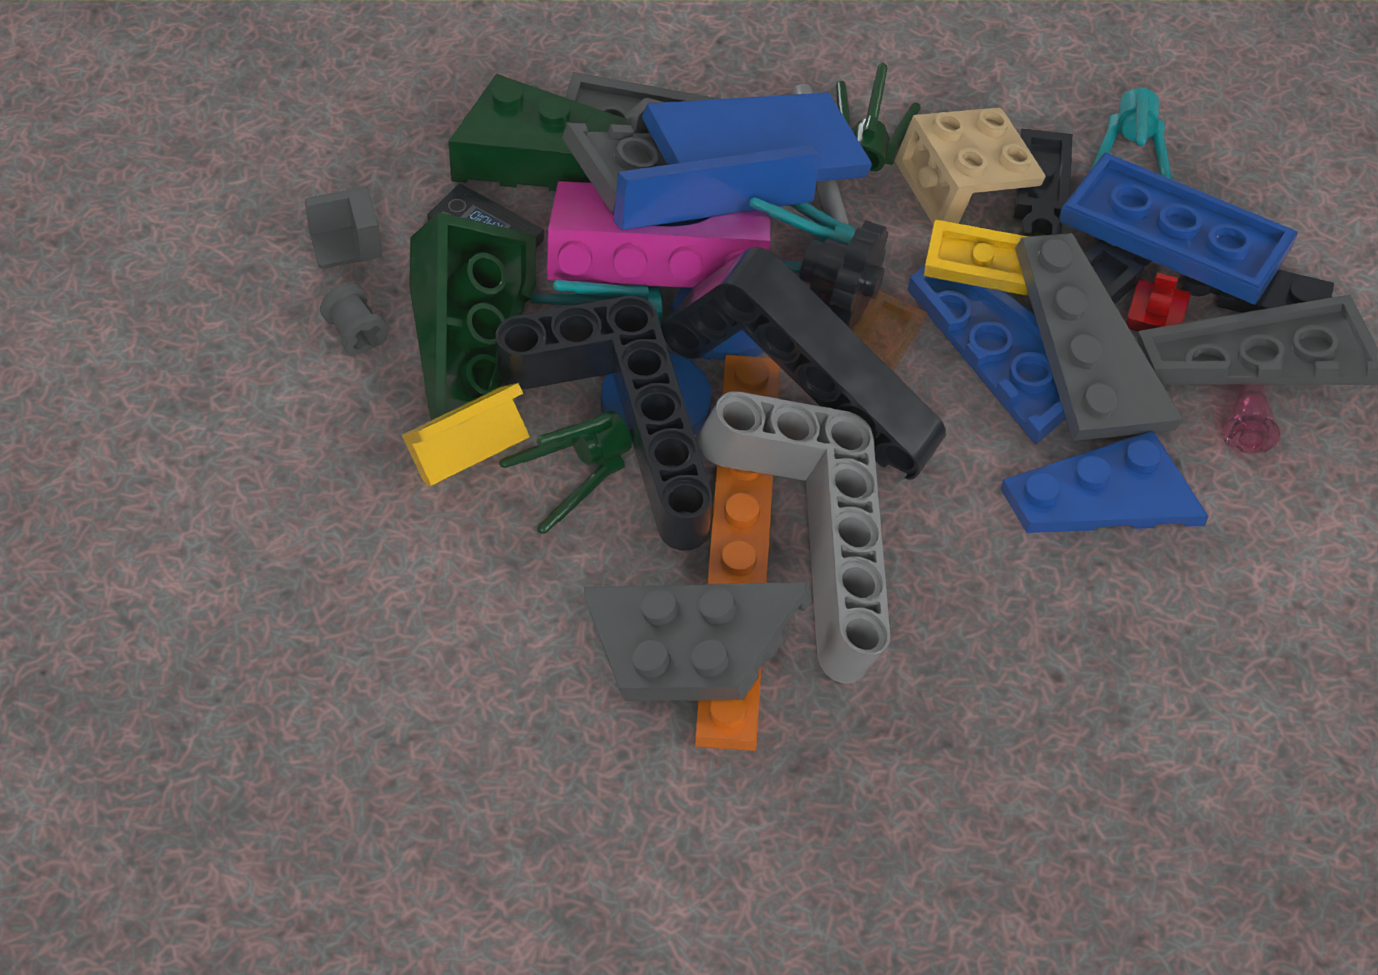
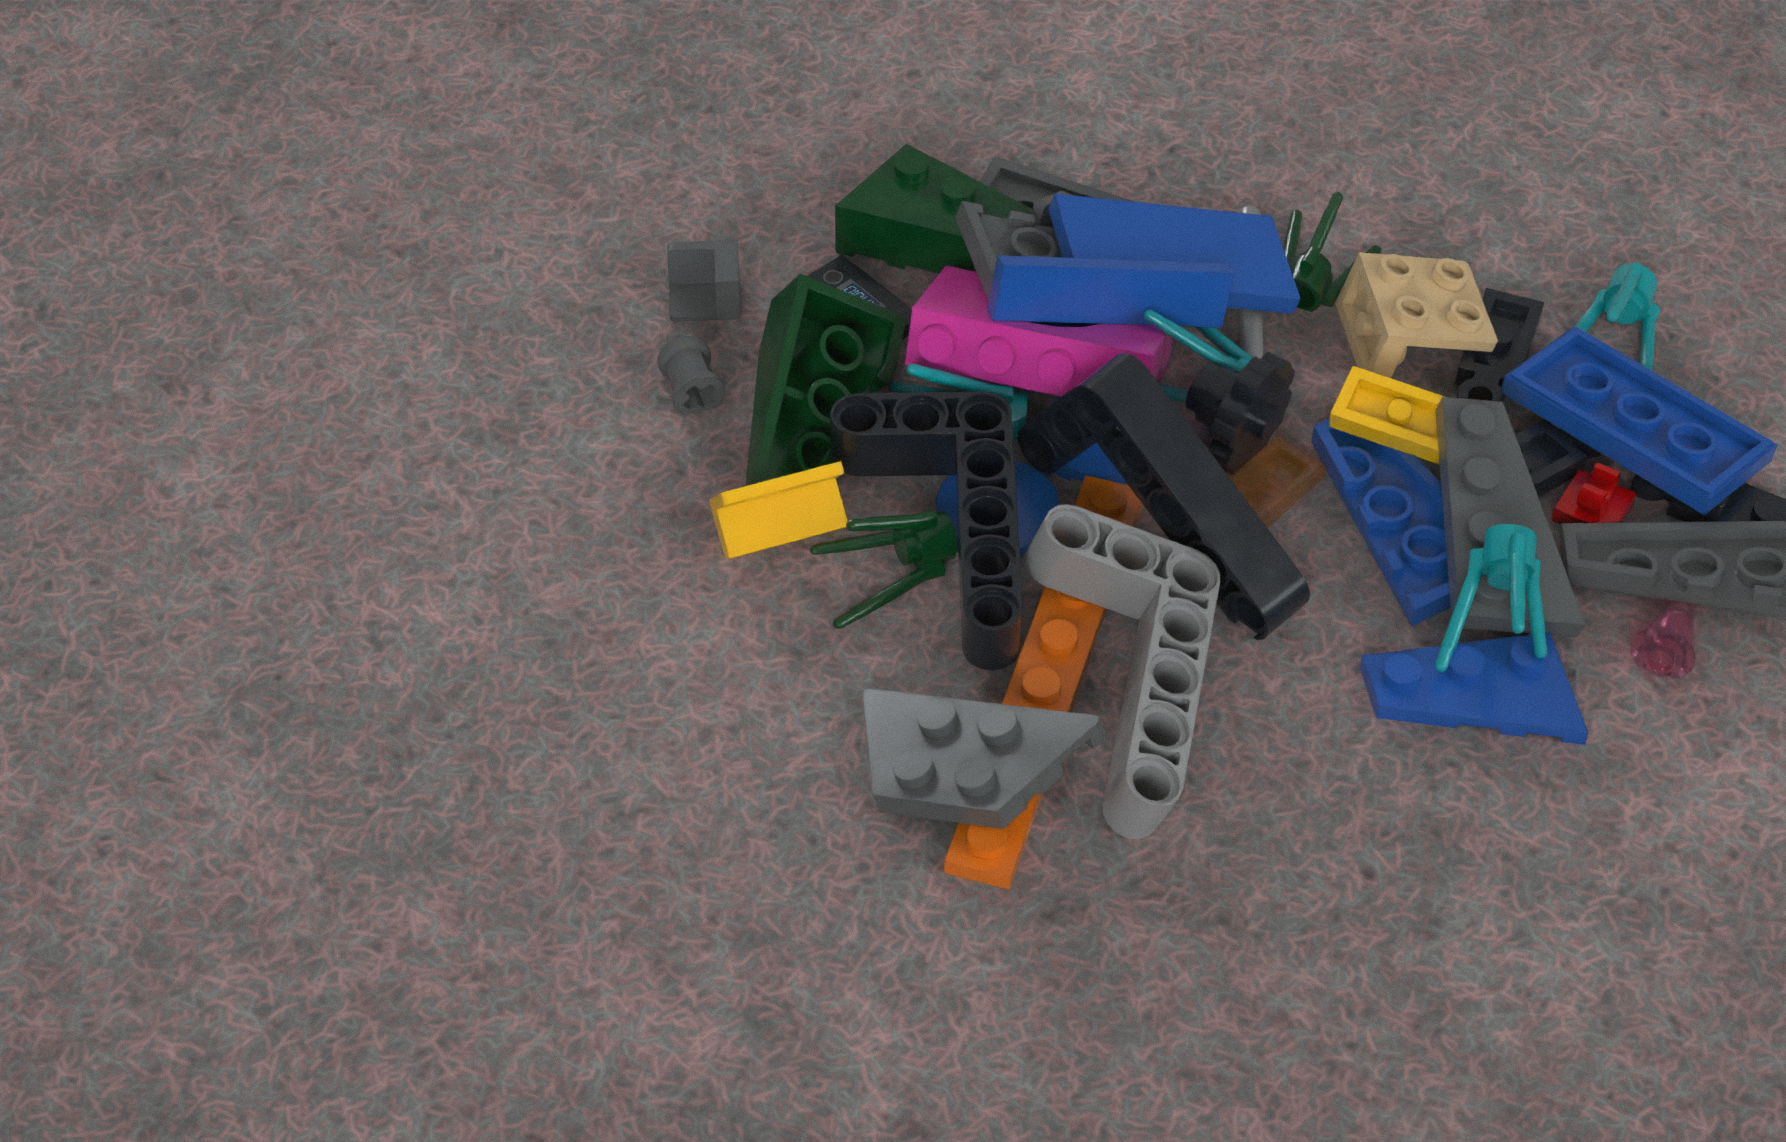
camera: 15 degrees right, 5 degrees down
(1117, 380) = (1510, 566): none -> teal plant

